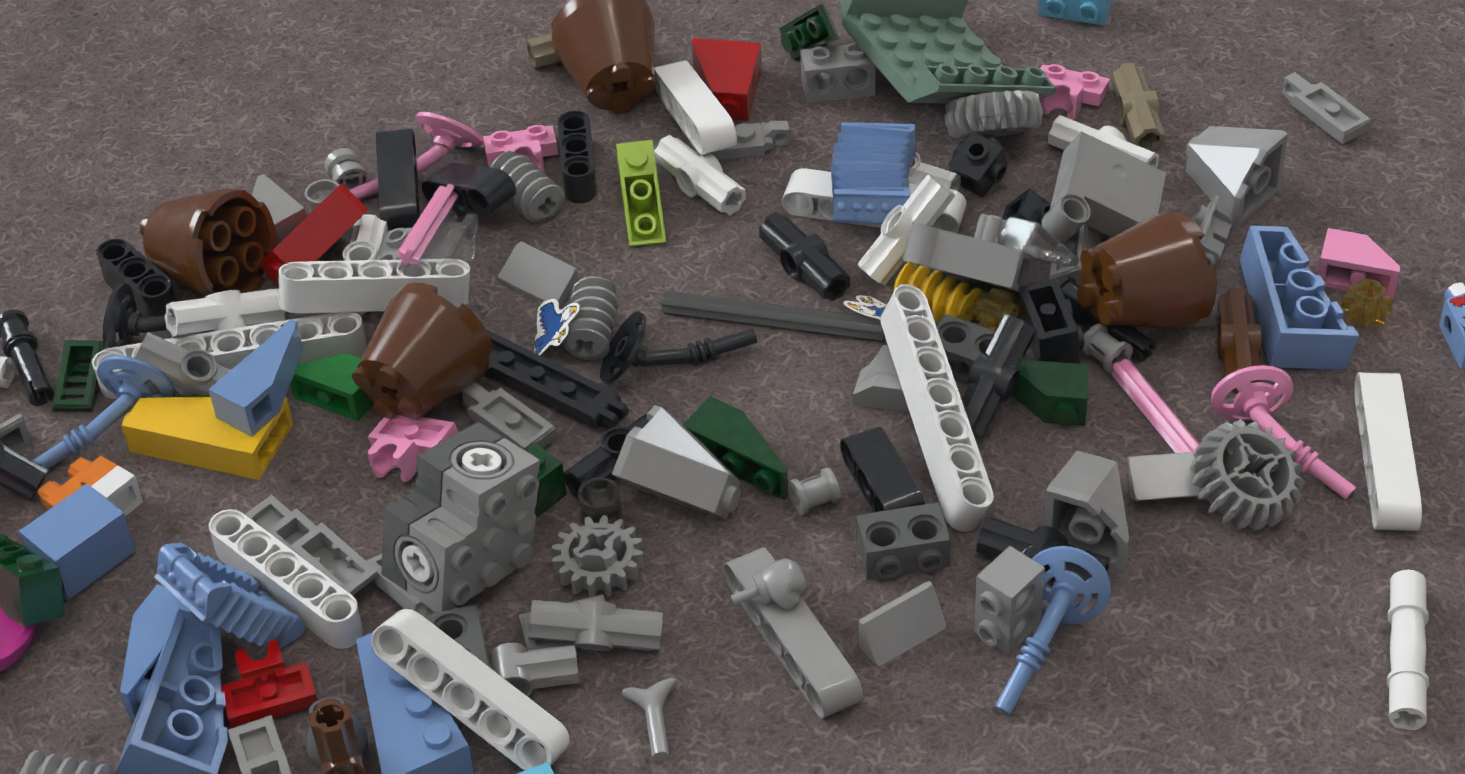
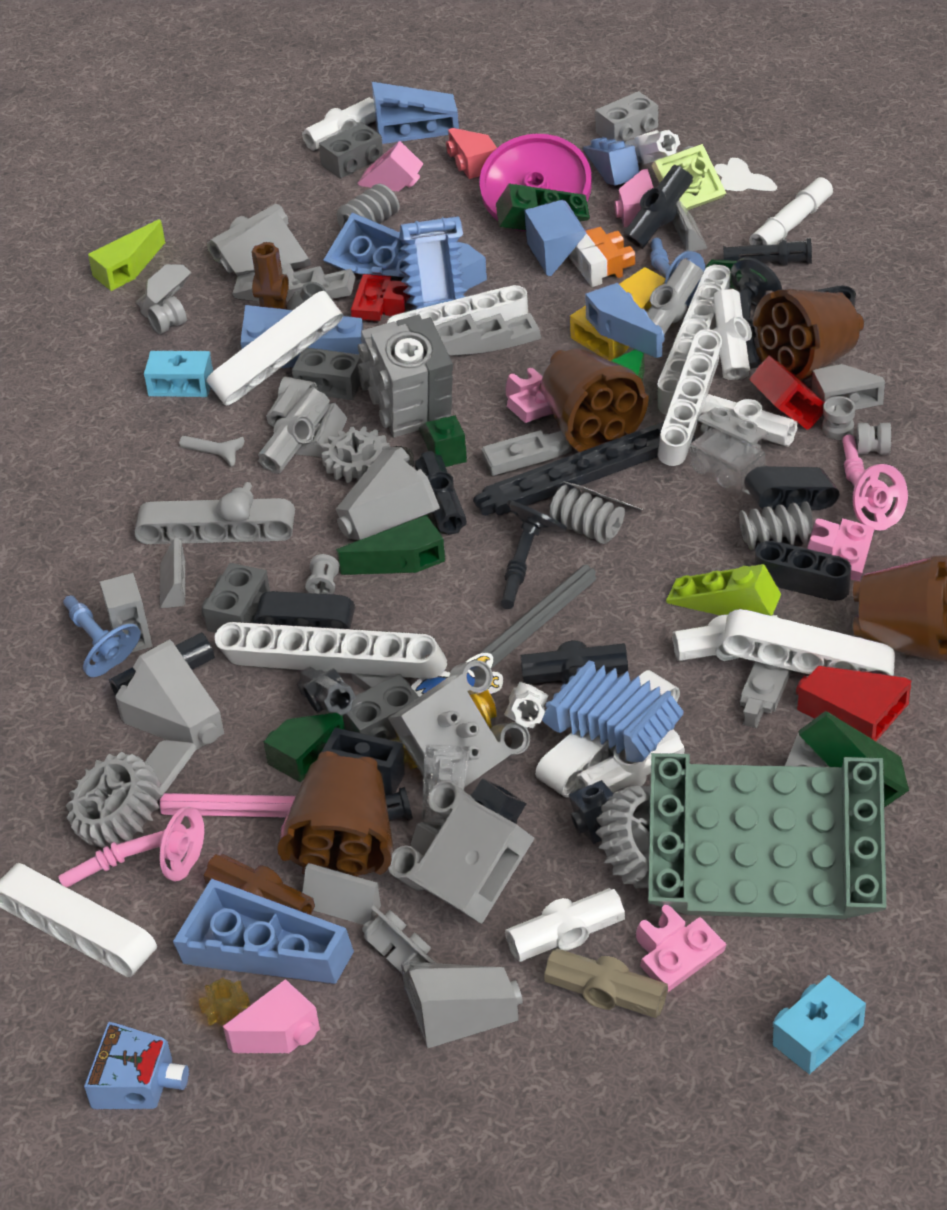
camera: 120 degrees right, 0 degrees up
(397, 178) = (835, 451): black beam -> none
(427, 225) = (733, 432): bright pink axle -> none
(538, 274) = (671, 515): light grey slope -> none
(1325, 108) = (499, 1140): light grey hinge -> none

